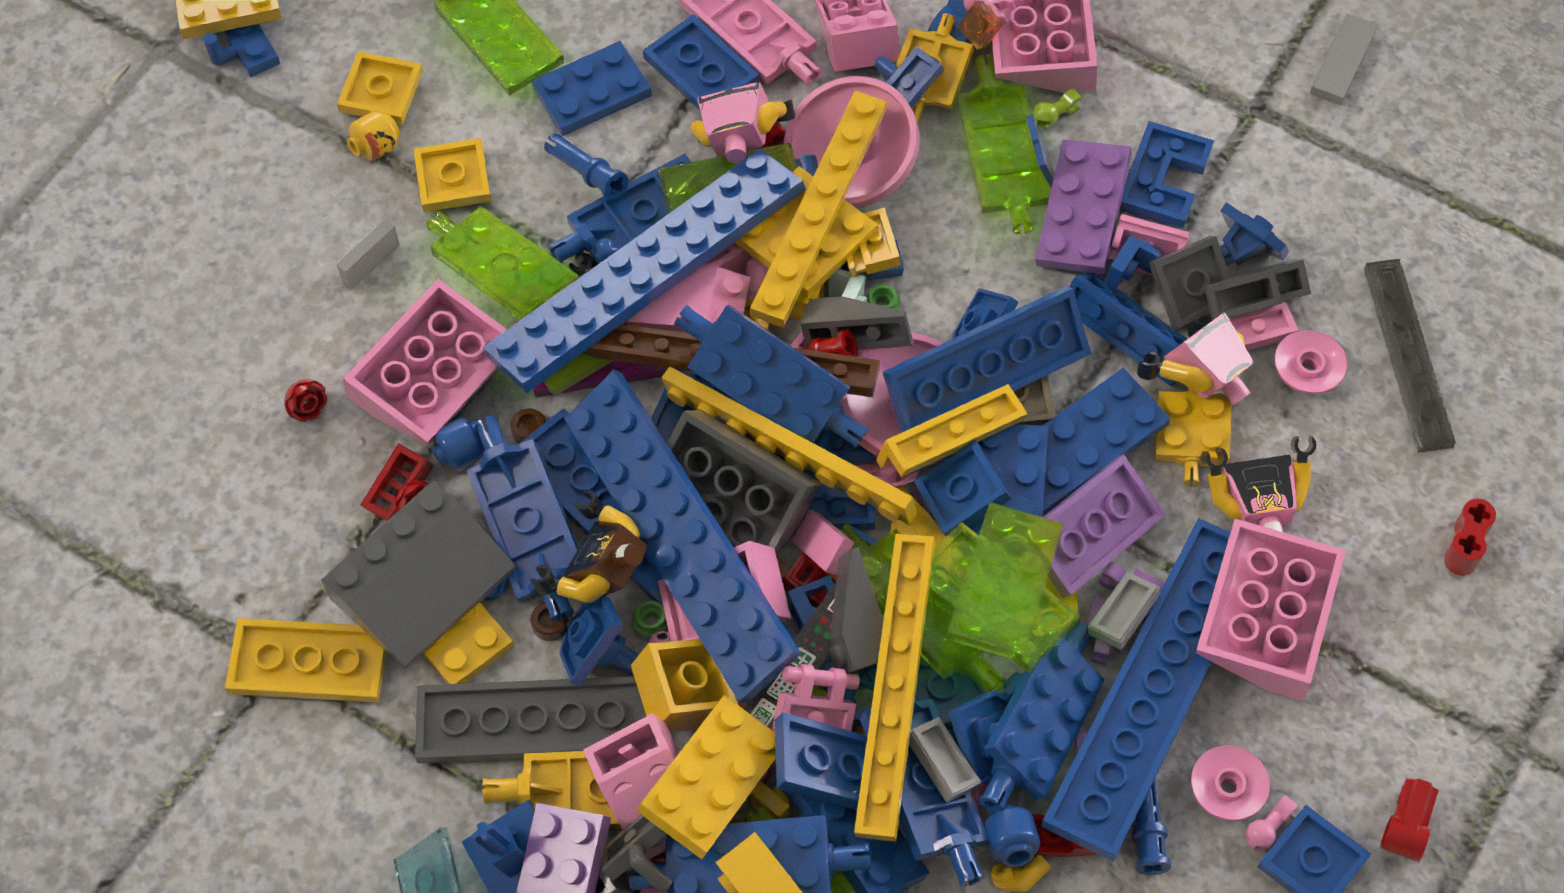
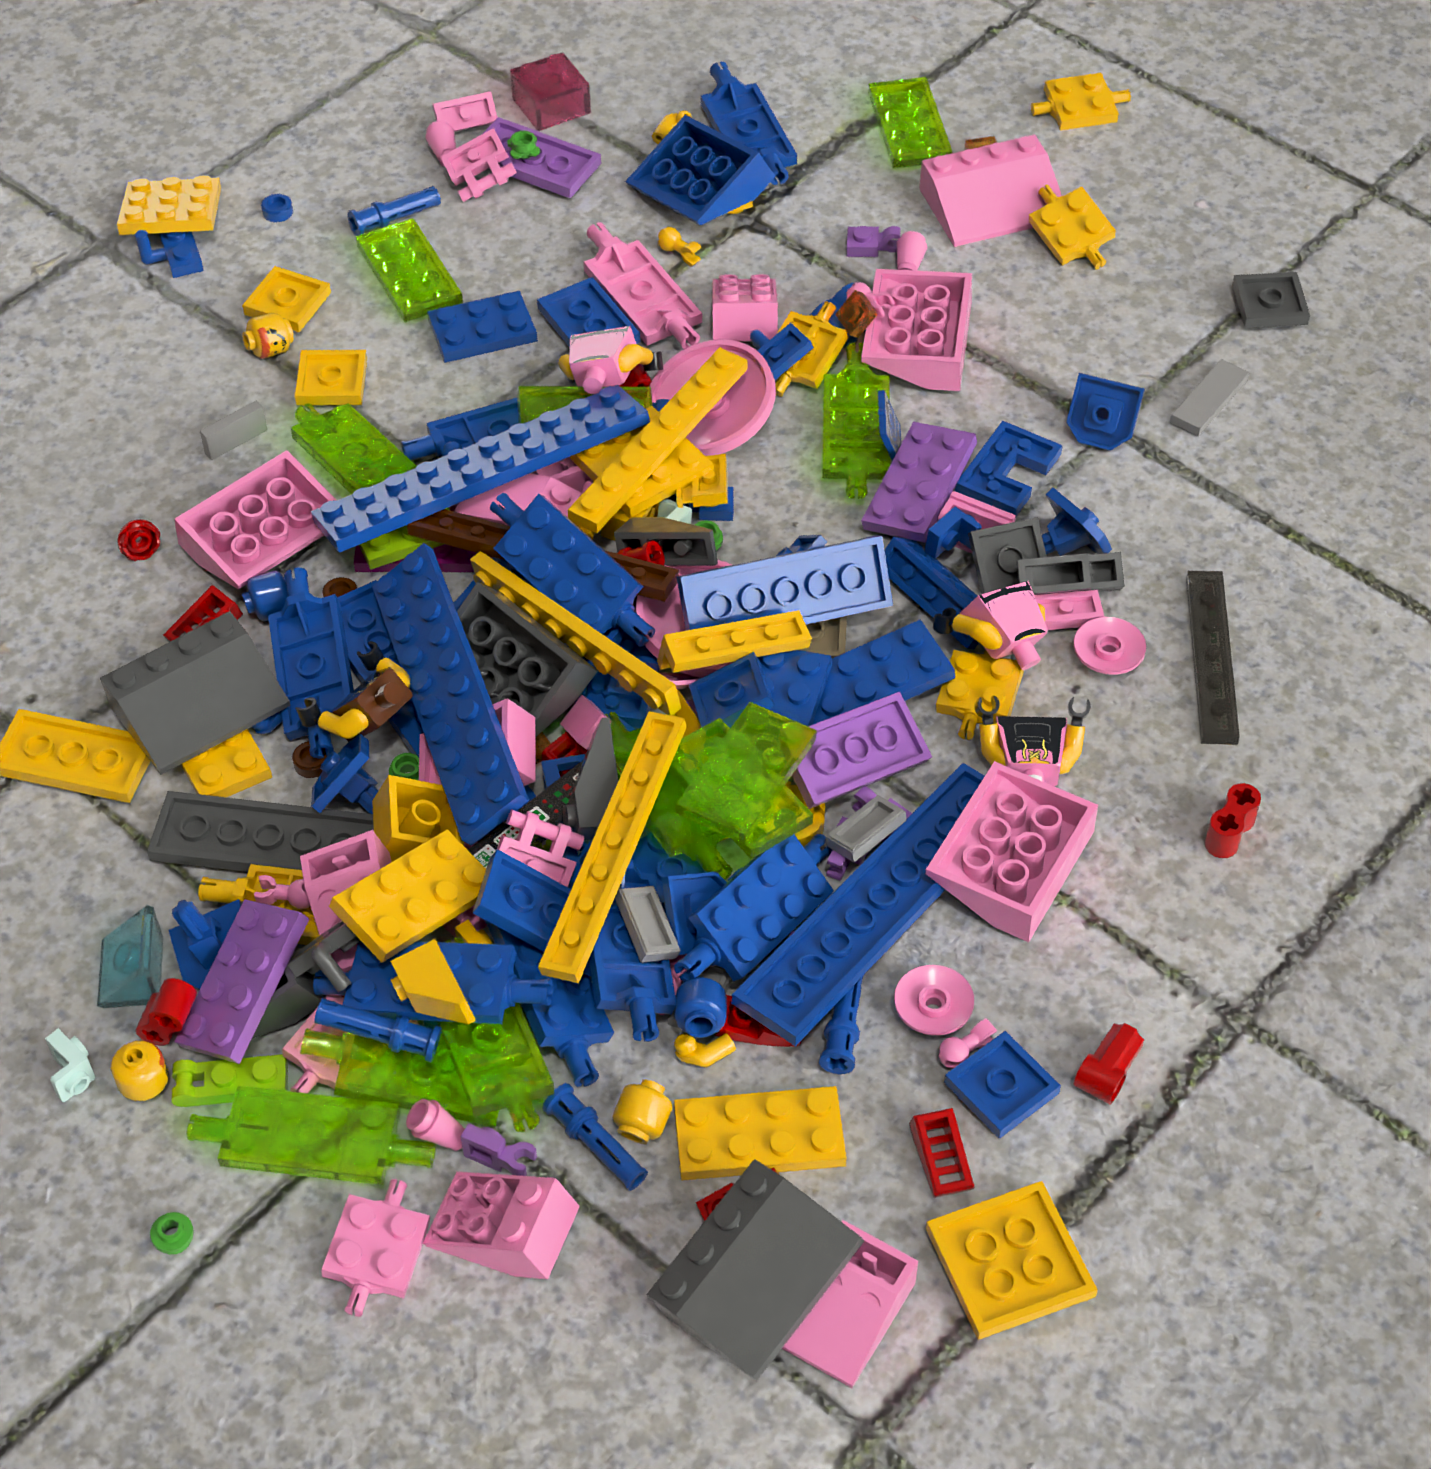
camera: 10 degrees right, 10 degrees down
(582, 782) = (294, 893): none -> bright pink arm
(595, 171) = (461, 389): blue pin -> none
(1047, 113) = (905, 402): lime arm -> none
(1249, 96) = (1104, 411): none -> blue piece

